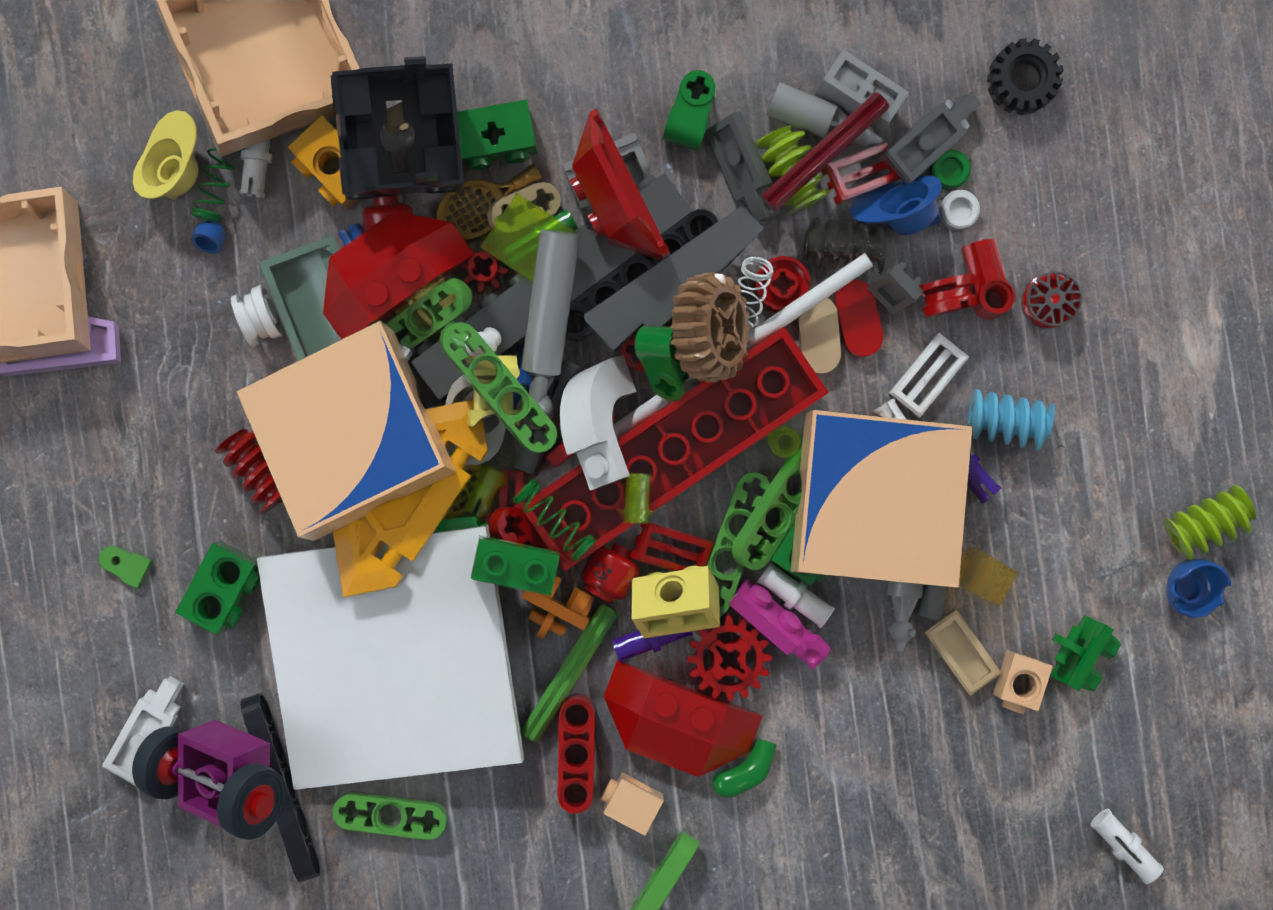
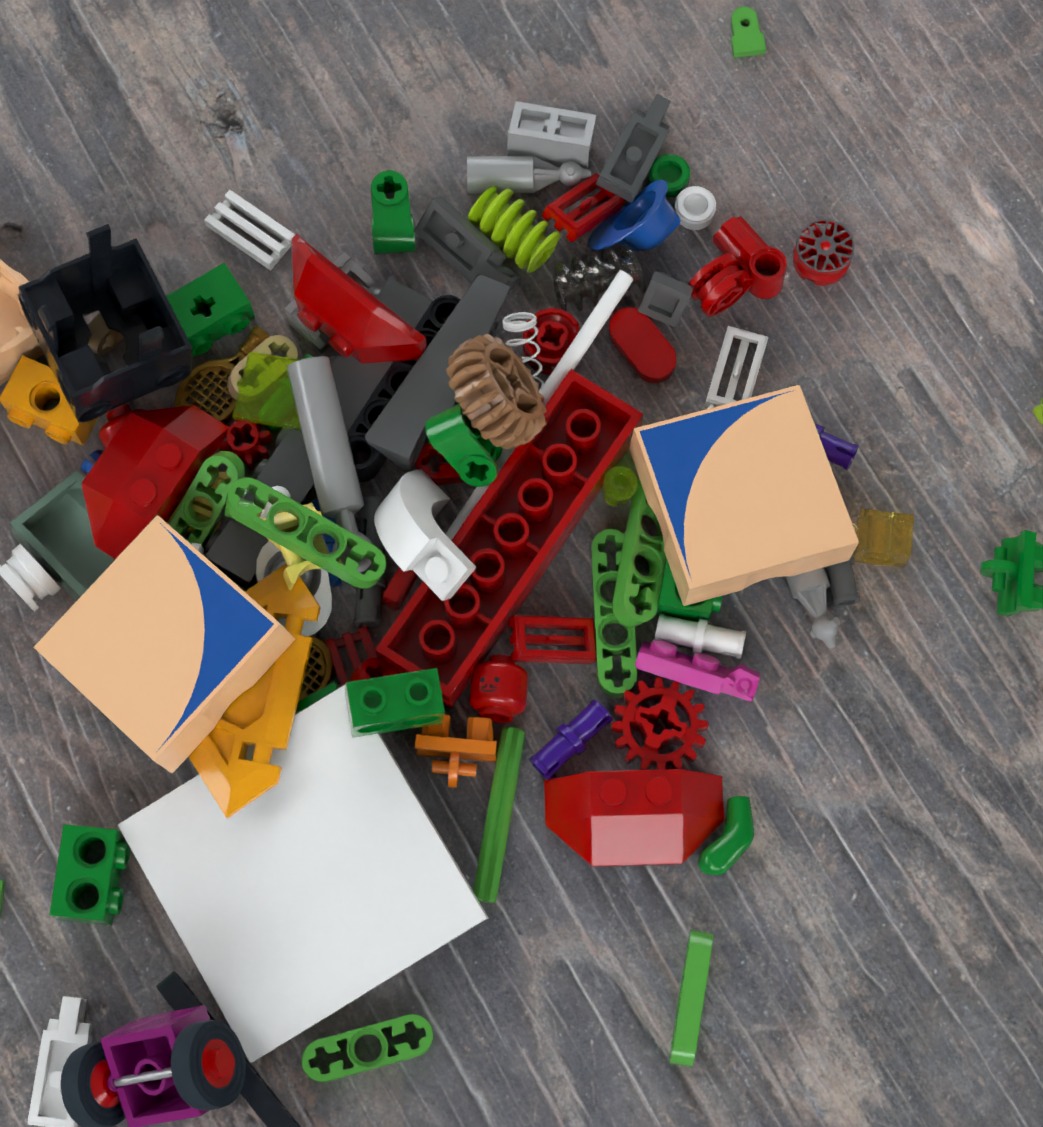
camera: 25 degrees left, 15 degrees down
(251, 463) = (81, 733): red piece -> none
(485, 488) = (333, 654): clear neon green pin -> none
(534, 486) = (377, 629): green piece -> none
(546, 42) = (224, 210): none -> white tile
(576, 772) = (542, 870): red beam -> none
(631, 803) = (623, 921): light nougat brick -> none
(637, 499) = (497, 598): clear neon green pin -> none
(692, 611) = (578, 685): light yellow brick -> none
(820, 336) = (610, 370): tan tile -> none
(825, 151) = (538, 192): dark red axle -> none
(962, 652) = (897, 626): tan tile -> none
(1010, 419) = (837, 375): medium azure piece -> none
(1013, 666) = (976, 609): light nougat brick -> none
(1029, 53) = (703, 43): black tyre -> none
(1078, 67) = (746, 40): none -> bright green piece

